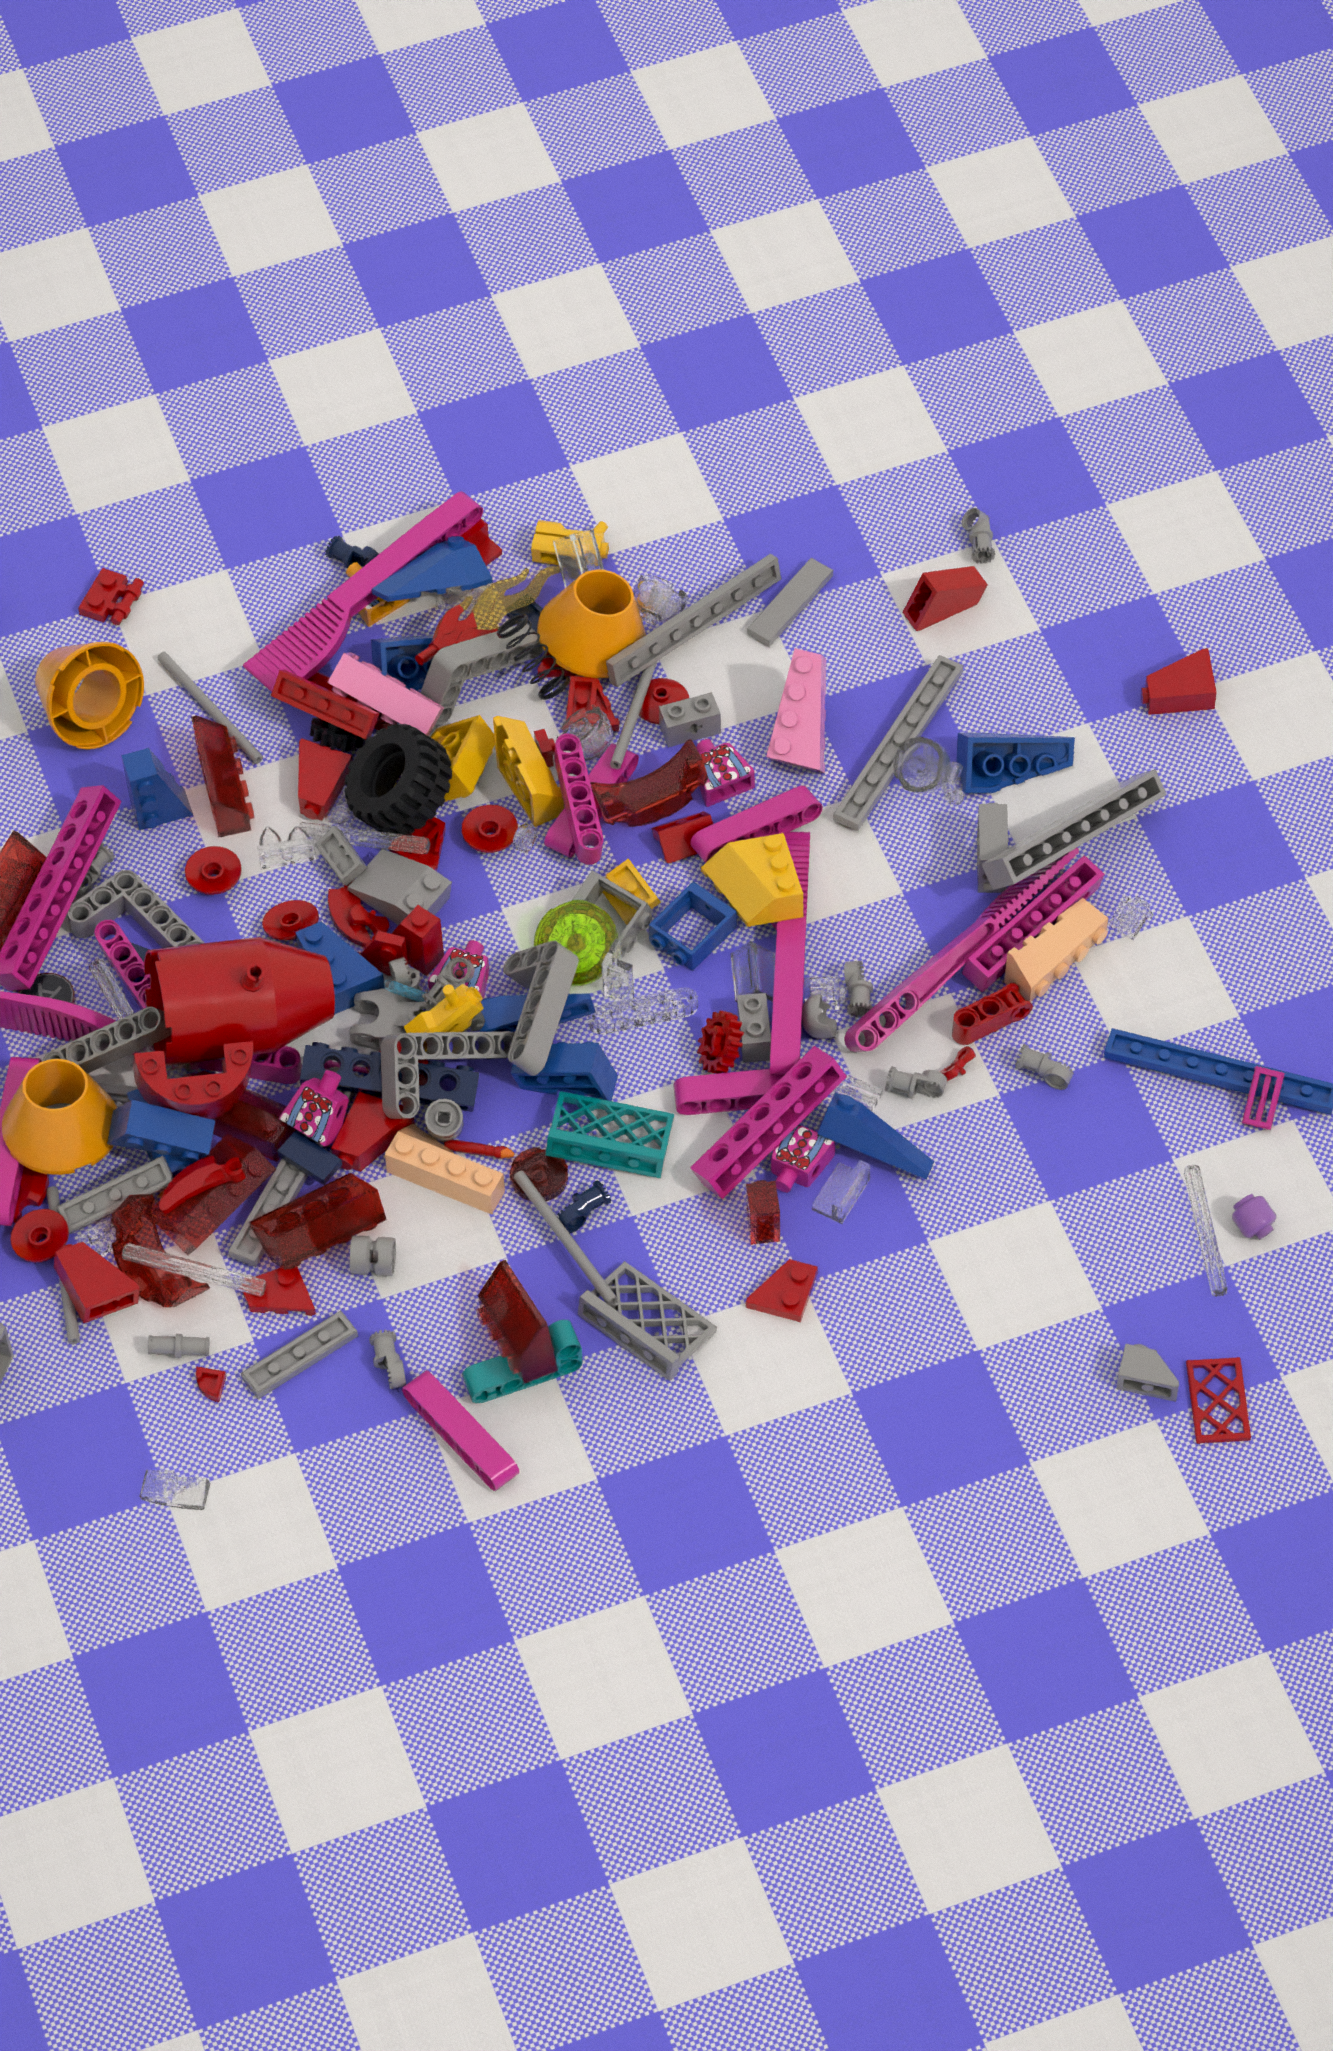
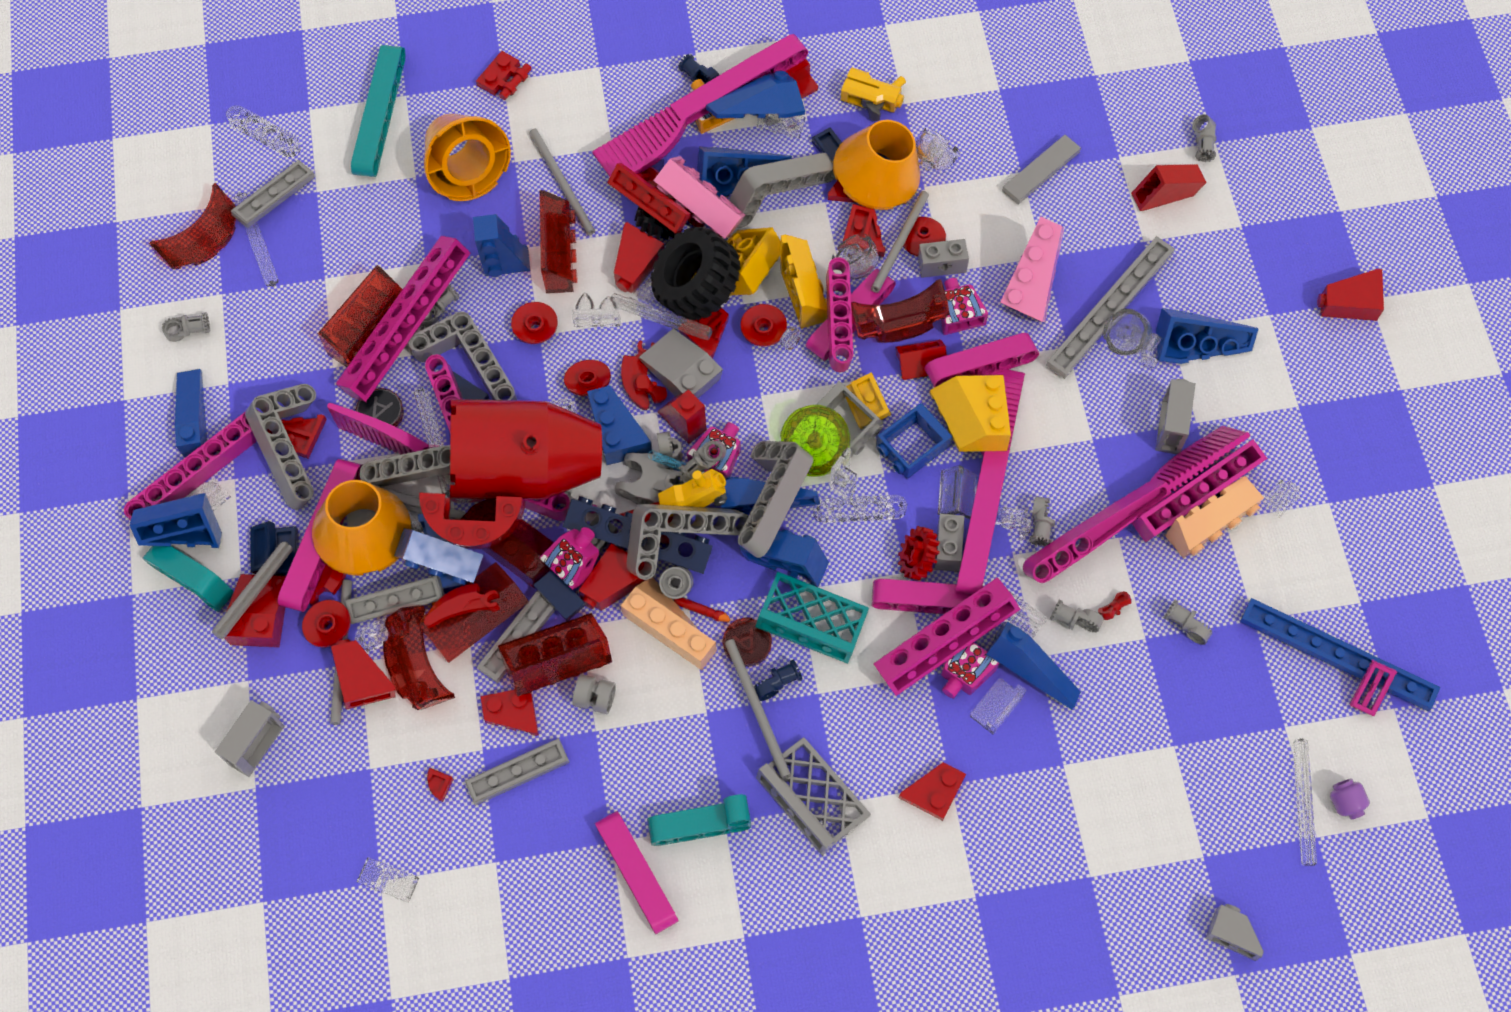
camera: 10 degrees right, 10 degrees up
(178, 1345) = (418, 745): light grey pin -> none
(194, 1269) = (443, 681): clear axle -> none
(340, 855) = (638, 329): light grey plate -> none
(383, 949) = (656, 421): red wing -> none
(387, 1357) = (588, 790): light grey connector -> none
(486, 612) = (794, 140): clear yellow piece -> none
(516, 1325) = (698, 790): clear red slope -> none
(545, 746) = (821, 262): red plate -> none
(554, 682) = (813, 152): black piece -> none
(577, 555) = (877, 103): clear panel -> none
(693, 620) = (960, 173): light grey plate -> none
(763, 1212) = (928, 717): clear red brick -> none
(815, 1018) = (1002, 545): light grey hair -> none
(1005, 1005) = (1164, 560): red piece -> none
(1073, 829) = (1247, 416): light grey brick -> none
(1199, 1415) = (1311, 956): red window -> none

